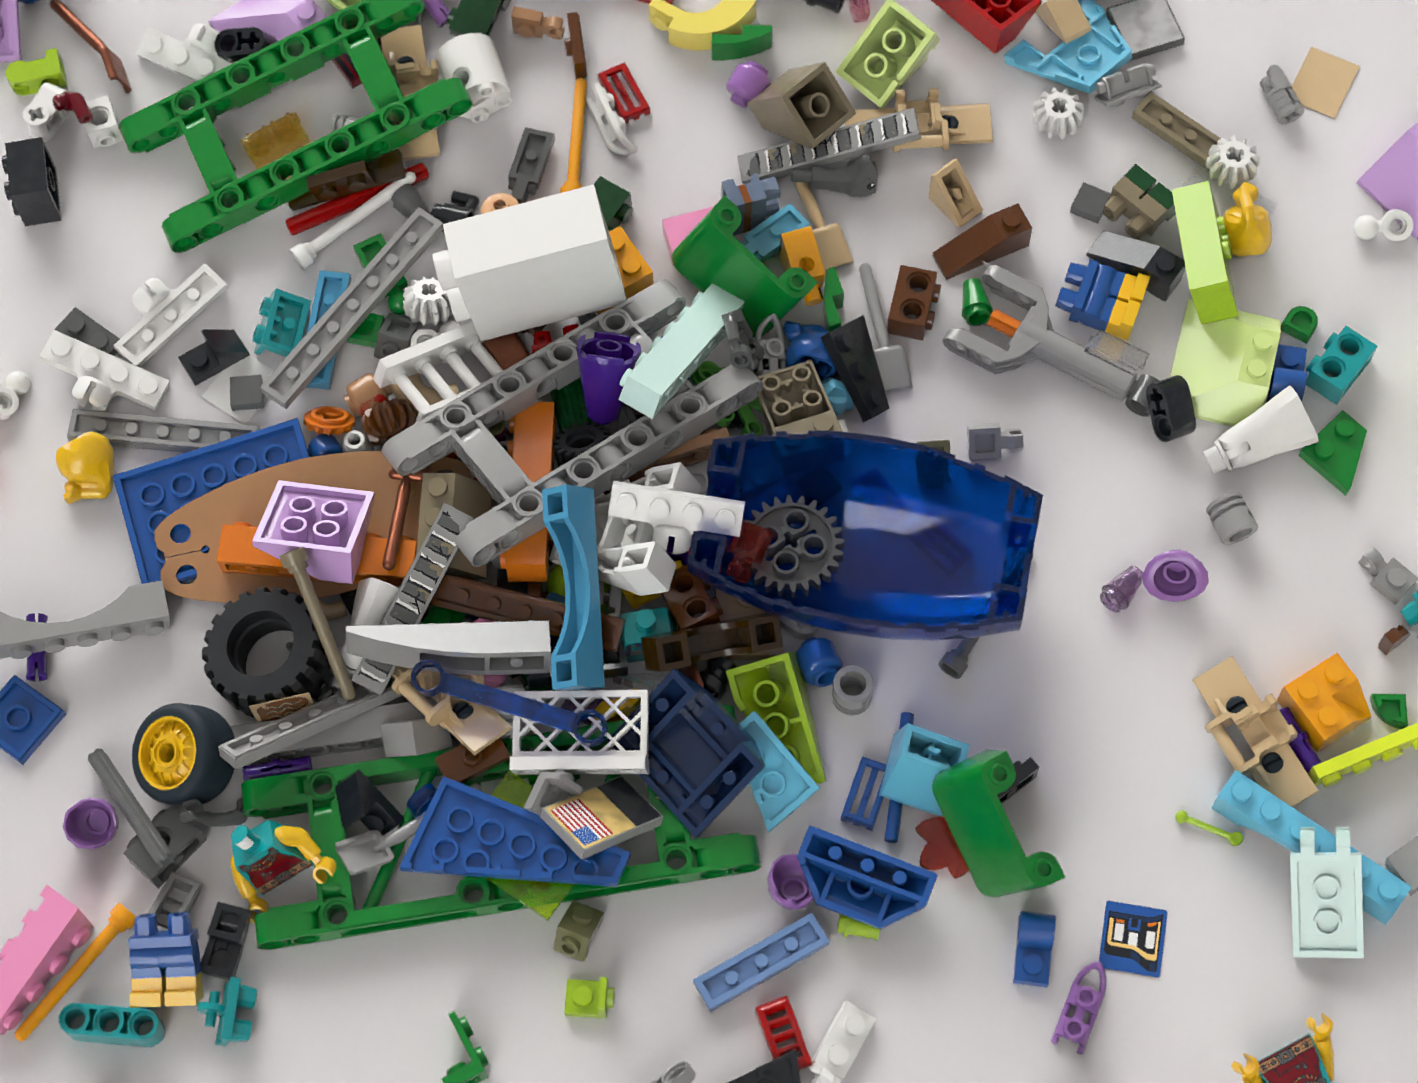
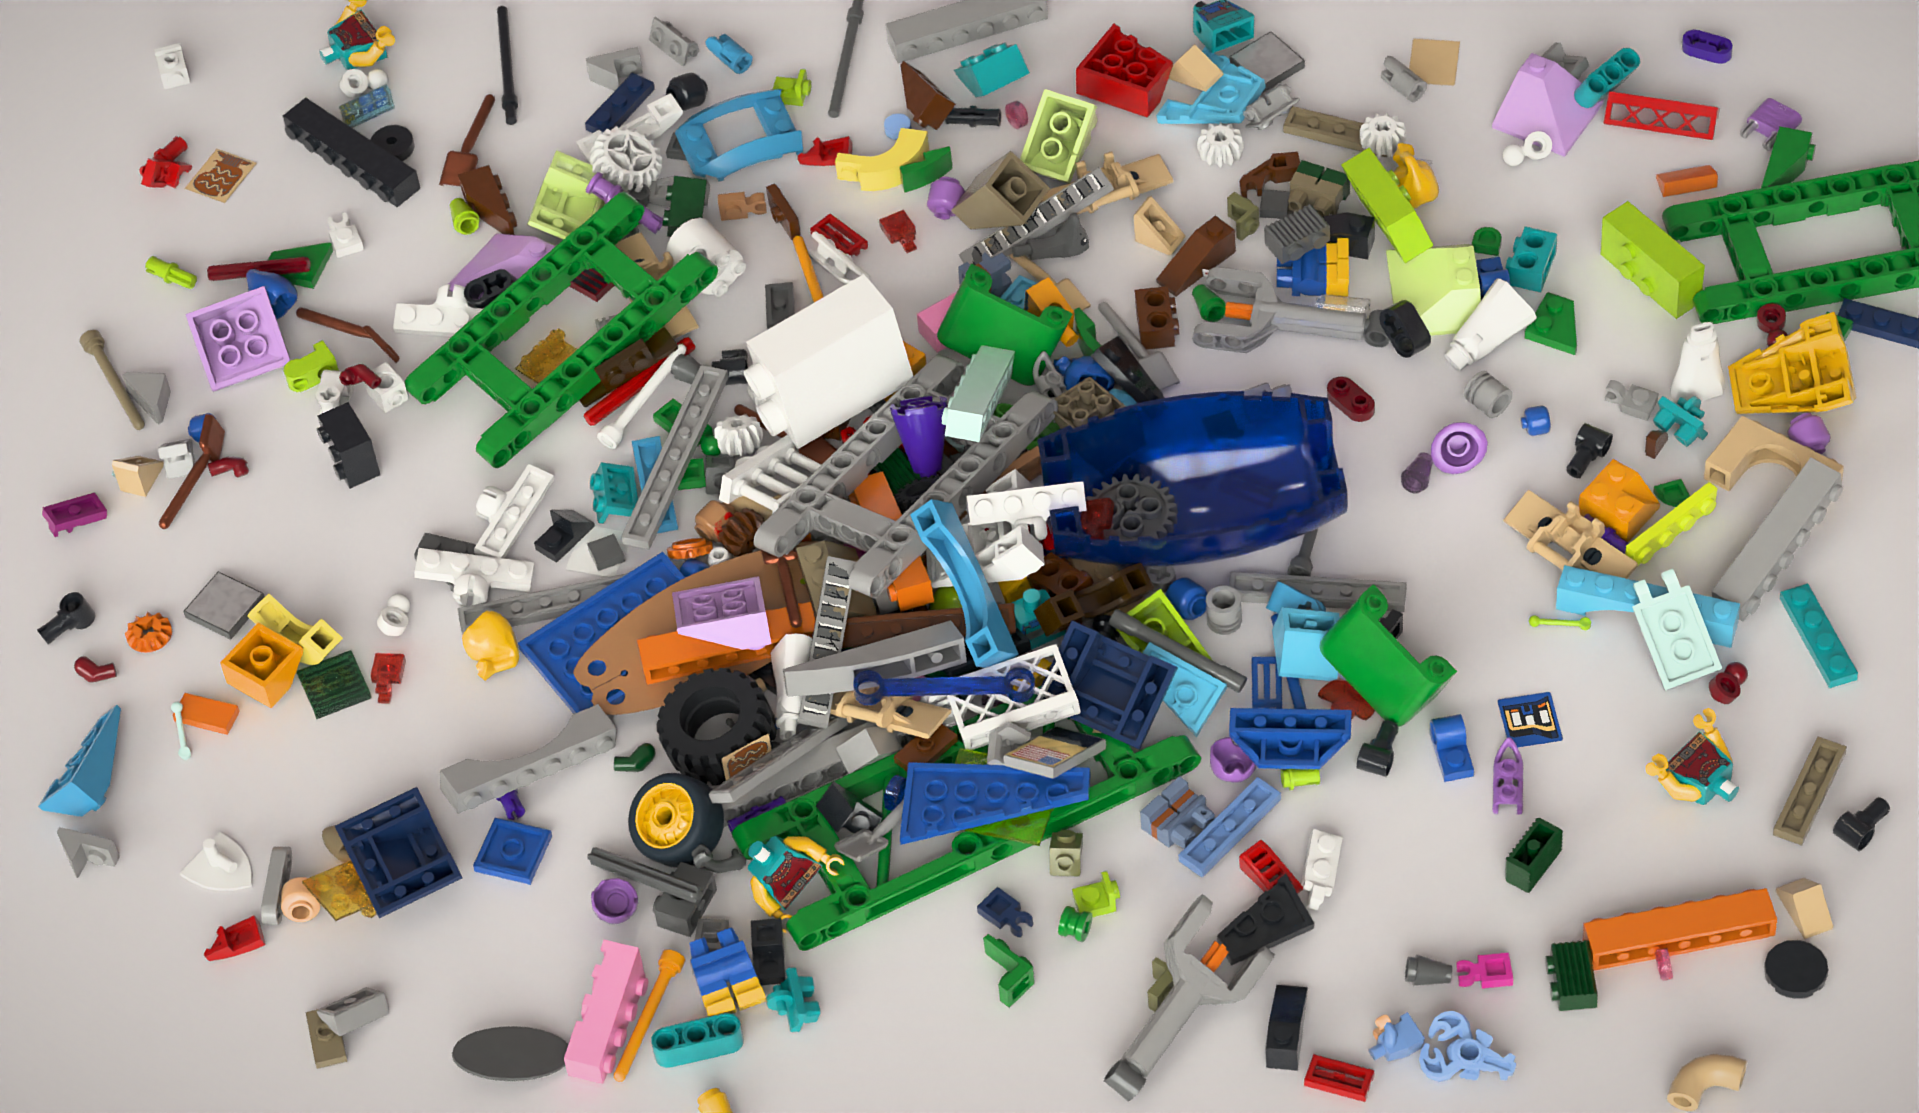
camera: 15 degrees left, 15 degrees down
(183, 656) = (637, 761): none -> dark green arm
(296, 563) = (723, 633): dark tan piece -> none
(484, 979) = (1003, 909): none -> dark blue plate
(553, 1025) = (1075, 924): none -> green wheel
(688, 103) = (899, 228): none -> clear red plate
(725, 926) = (1175, 813): none -> sand blue hips
(741, 341) = (1030, 381): dark grey piece -> none
(745, 687) = (1136, 629): none -> dark grey piece
(927, 707) = (1289, 597): none -> dark azure piece
(951, 929) = (1379, 755): none -> black pin
(962, 697) = (1329, 591): none -> light grey tile
(1054, 205) = (1244, 213): none -> olive bracket
(1082, 468) = (1345, 396): none -> dark red plate
(1094, 161) = (1278, 169): none -> reddish brown piece
(1095, 258) = (1297, 234): none -> dark grey brick
(1273, 568) = (1536, 420): none -> blue piece
(1321, 618) = (1589, 444): none -> black pin
(1359, 979) = (1726, 685): none -> dark red plate

